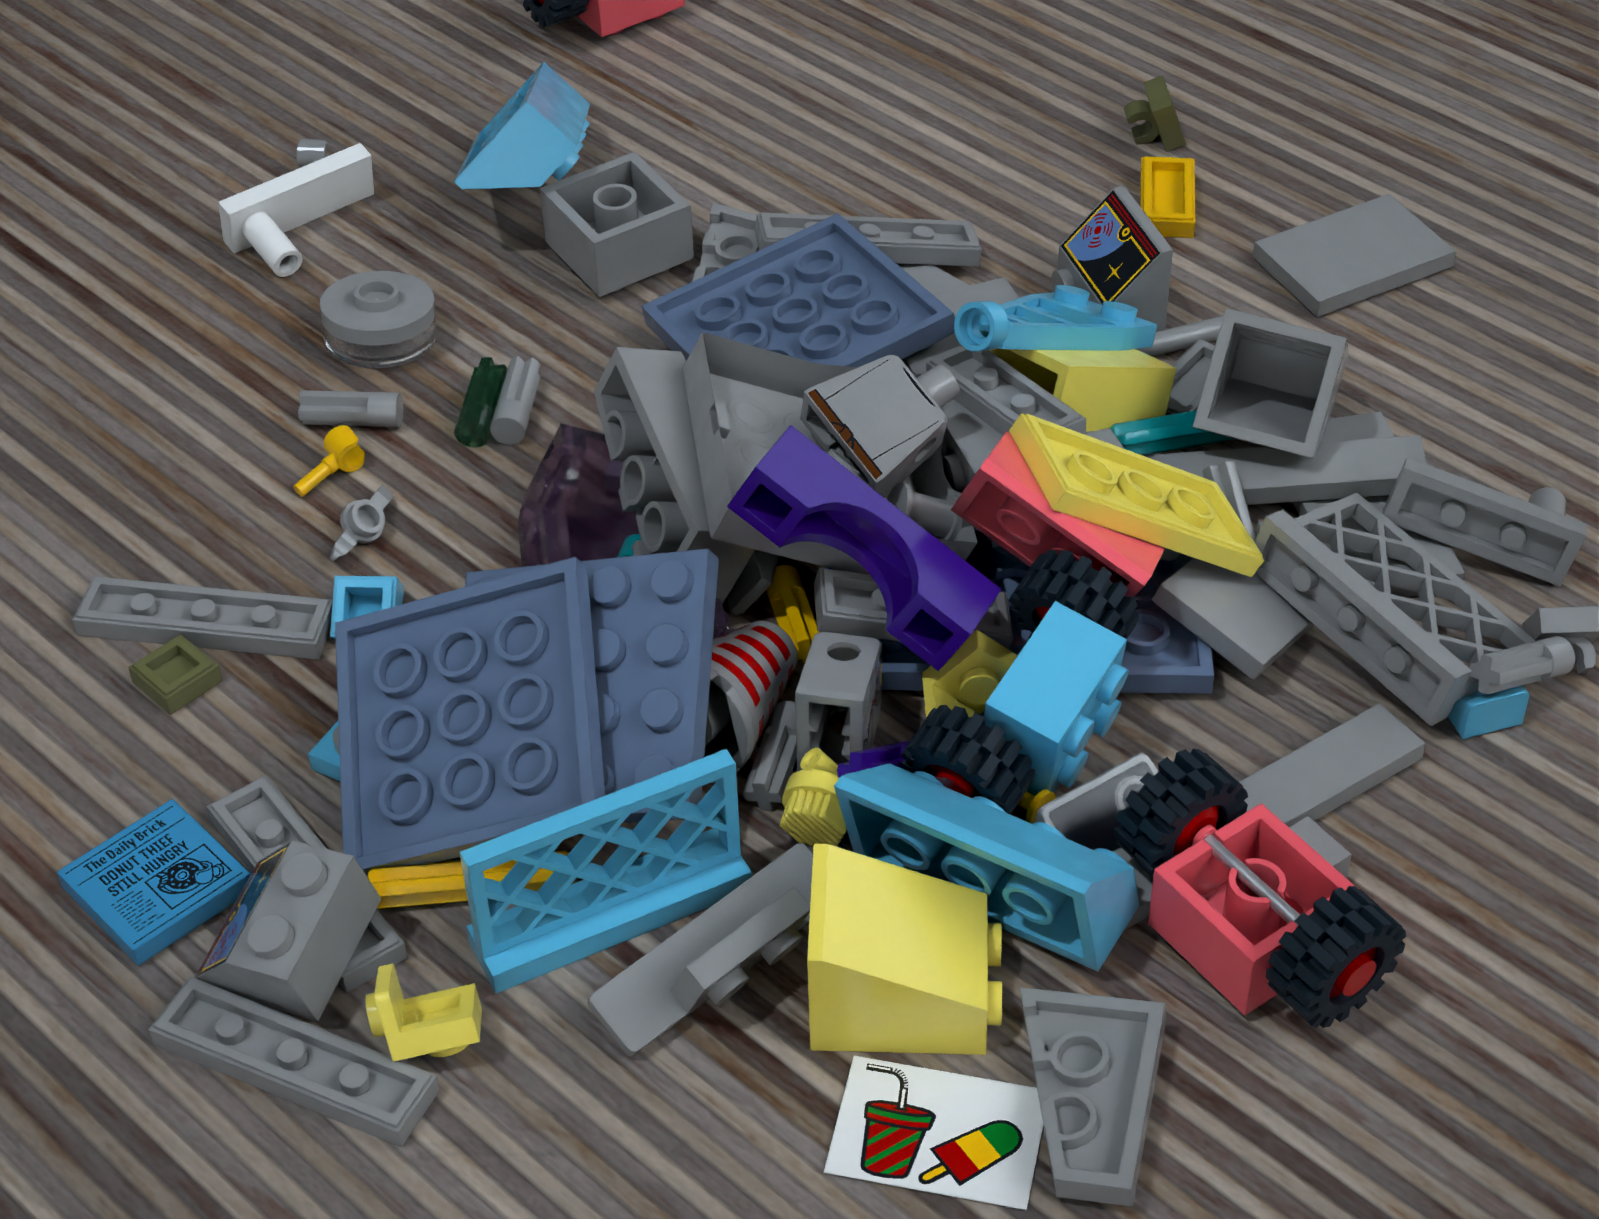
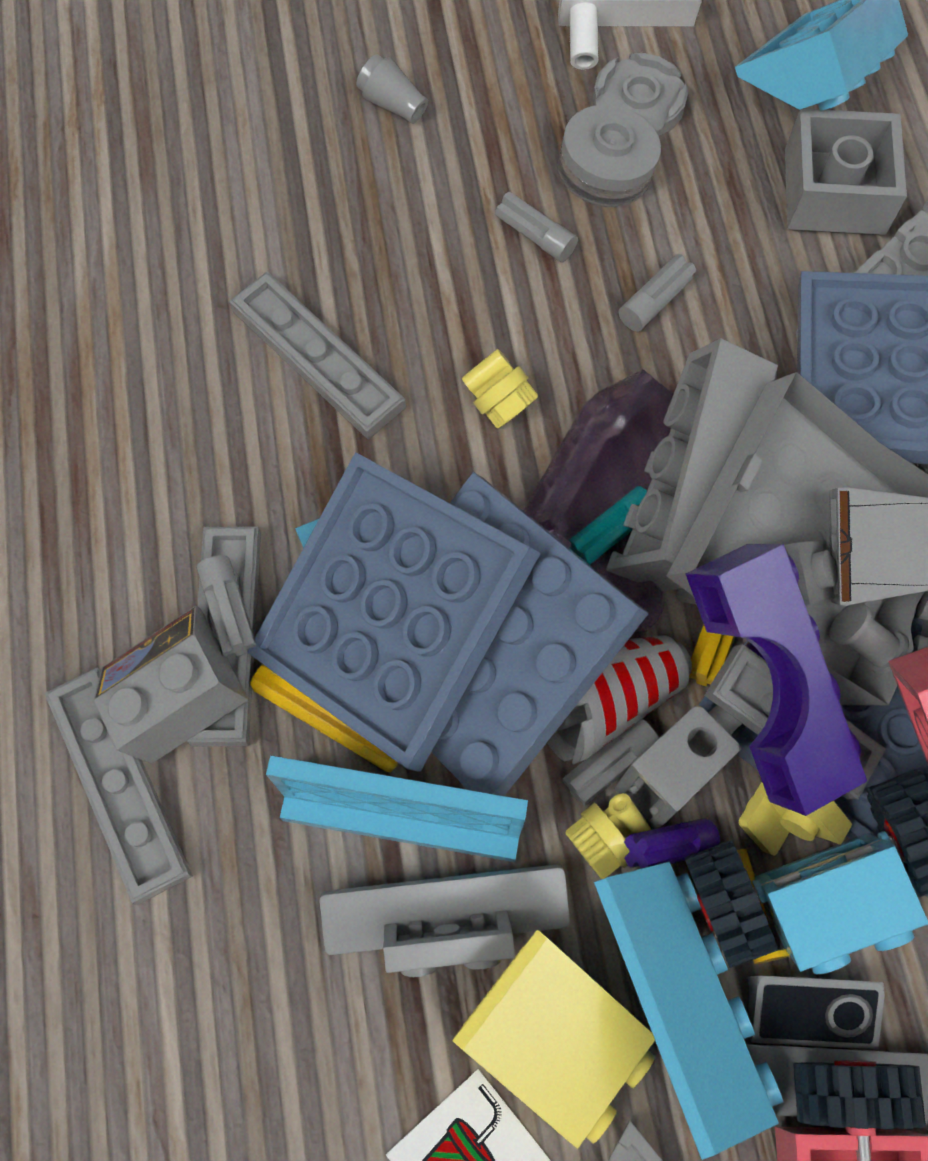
camera: 35 degrees right, 25 degrees up
(102, 373) = (390, 88): none -> light grey cone
(154, 881) = (134, 565): dark azure tile -> none
(175, 674) = (265, 391): olive tile -> none
(274, 828) = (226, 605): none -> light grey piece
(343, 453) = (504, 268): yellow hand -> none
(361, 522) = (473, 338): light grey piece -> none
(363, 595) = (424, 419): medium azure slope -> none
(365, 250) = (644, 86): none -> light grey tile
(423, 1024) = (207, 824): light yellow bracket -> none
(424, 541) = (499, 388): none -> light yellow piece
(480, 403) = (630, 279): clear green piece -> none

